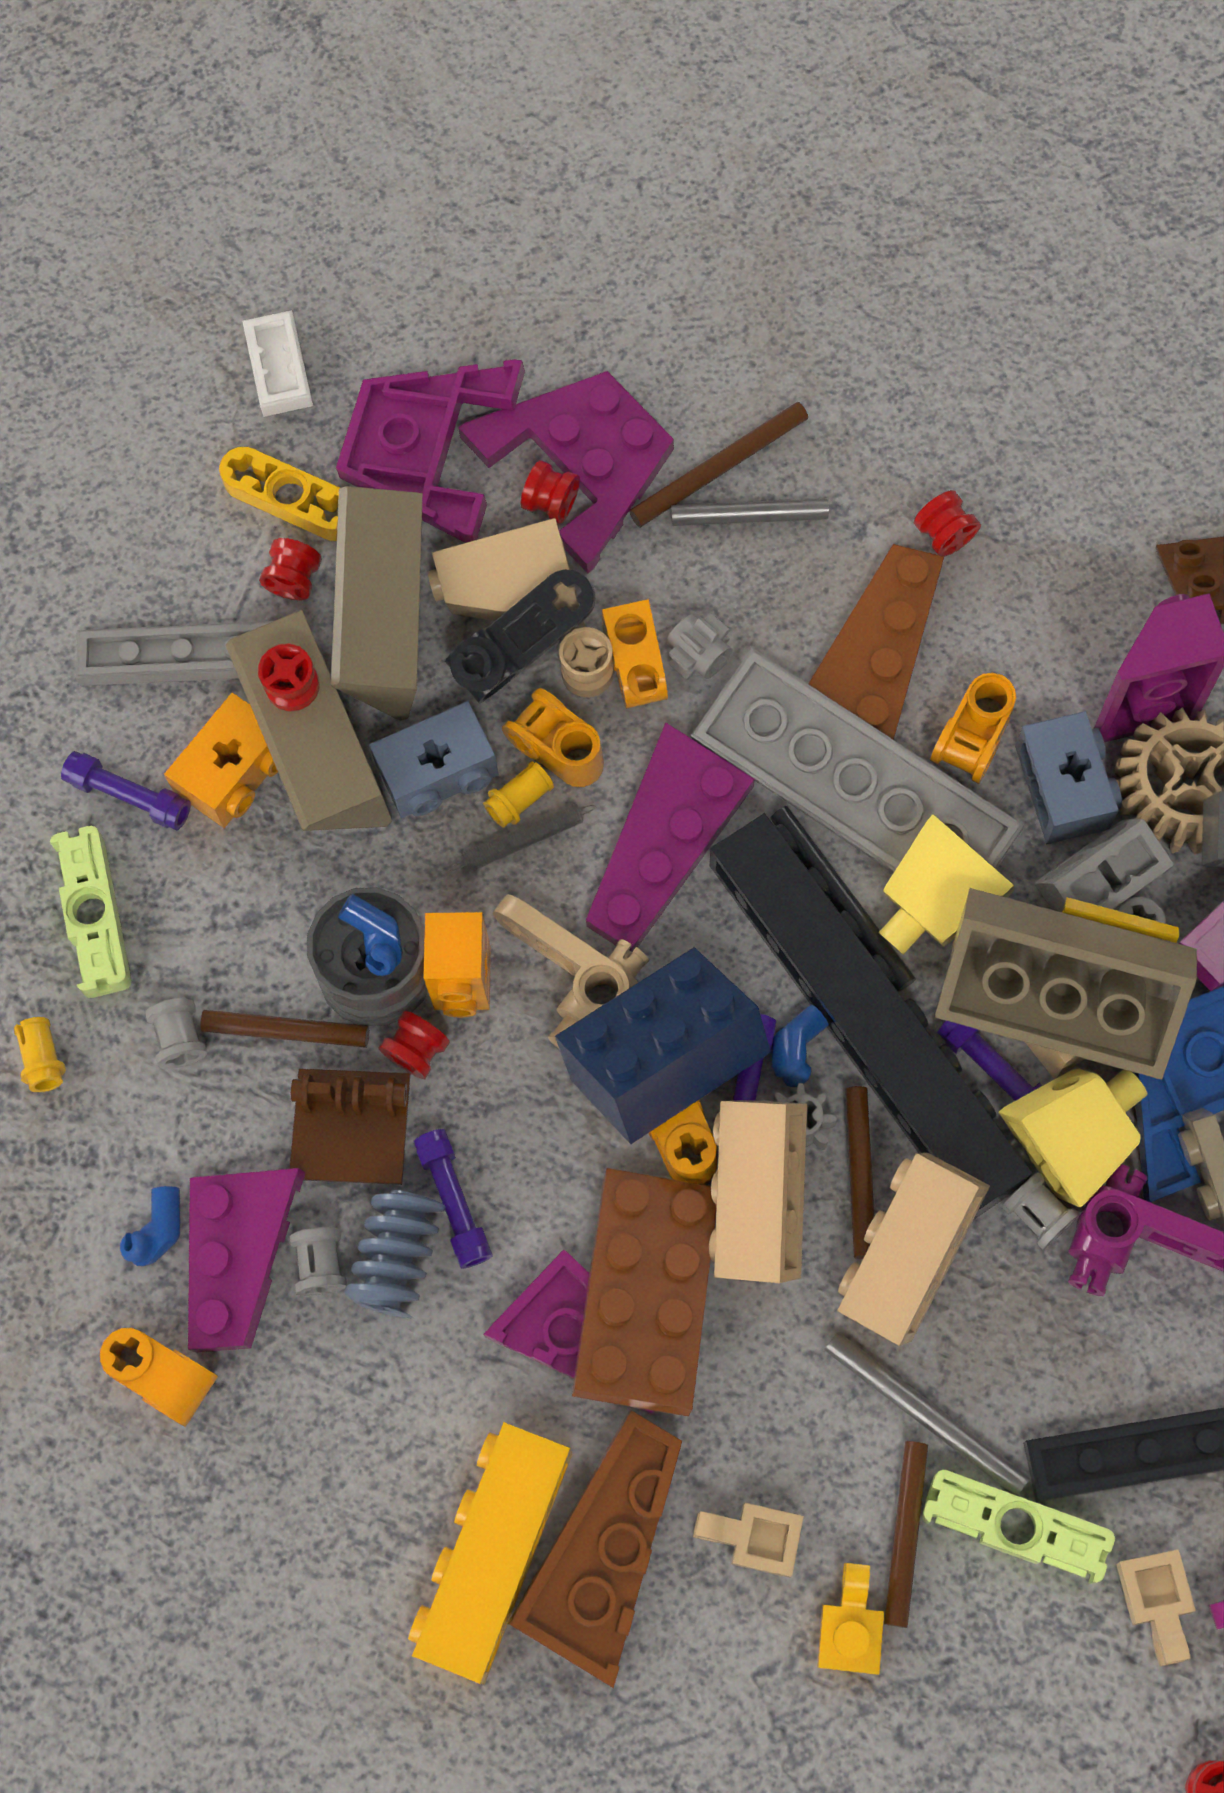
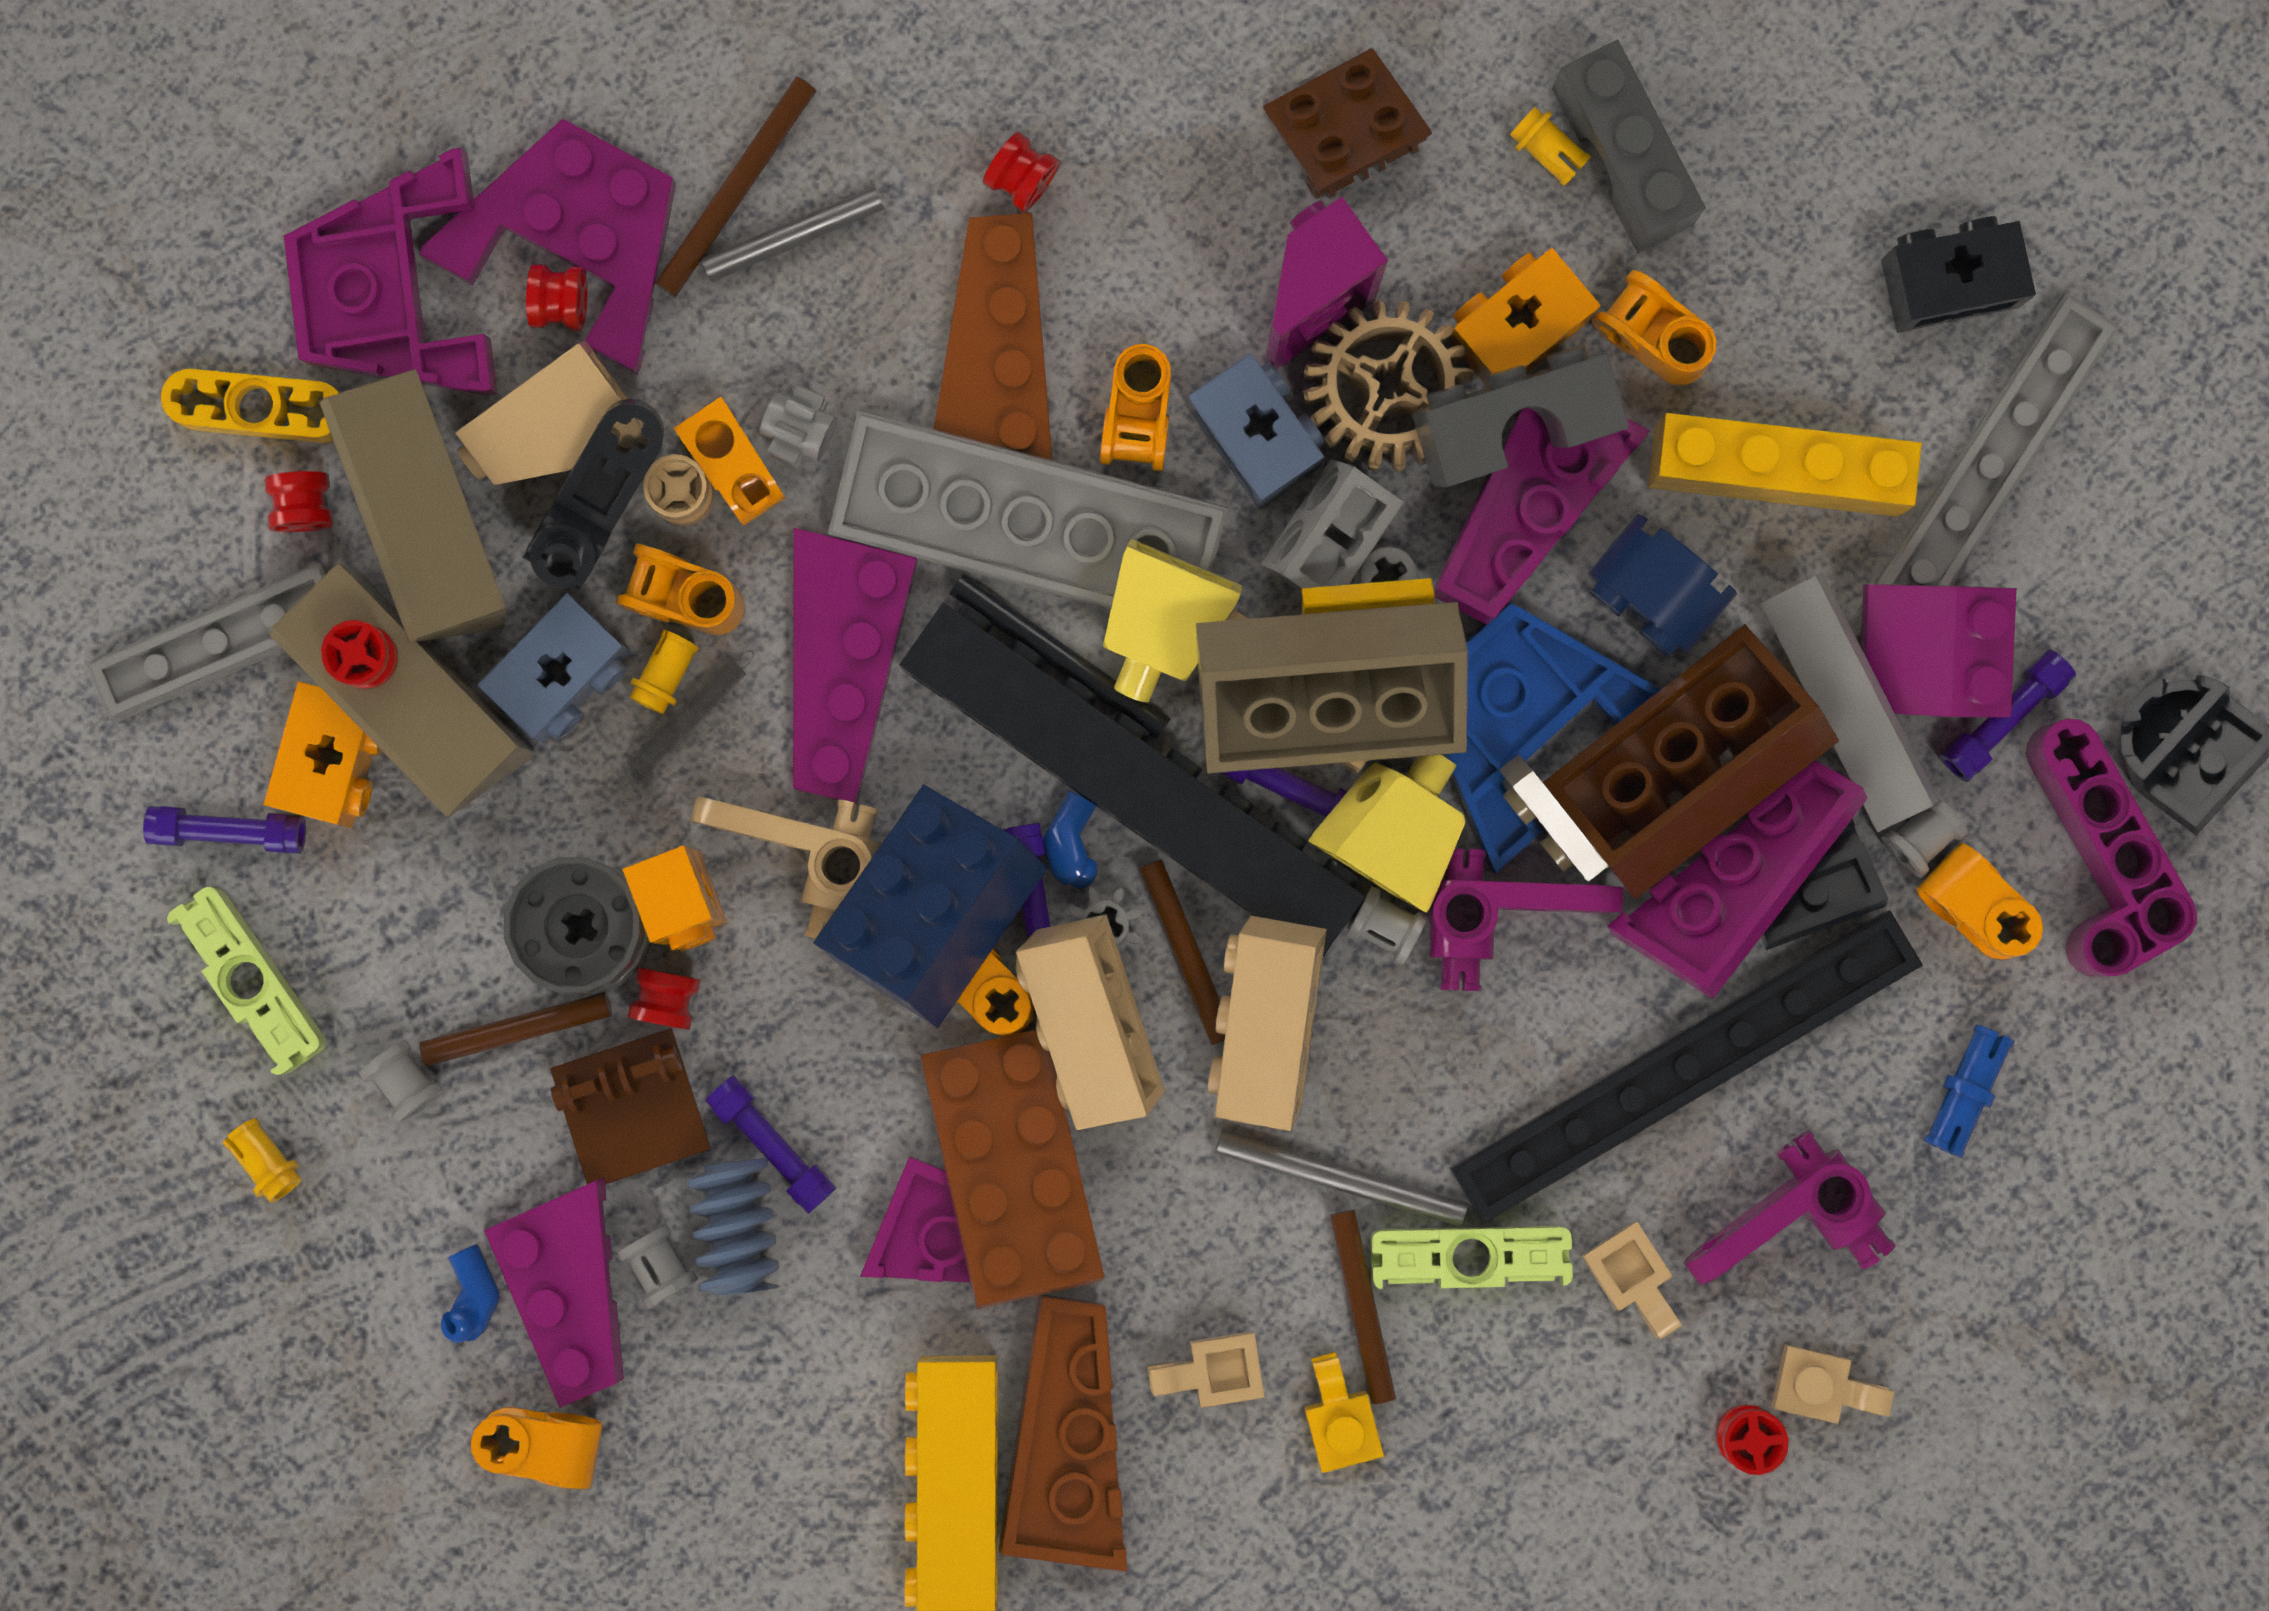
camera: 25 degrees left, 15 degrees up
(277, 363) = (173, 248): white plate -> none
(379, 932) = (581, 907): blue arm -> none

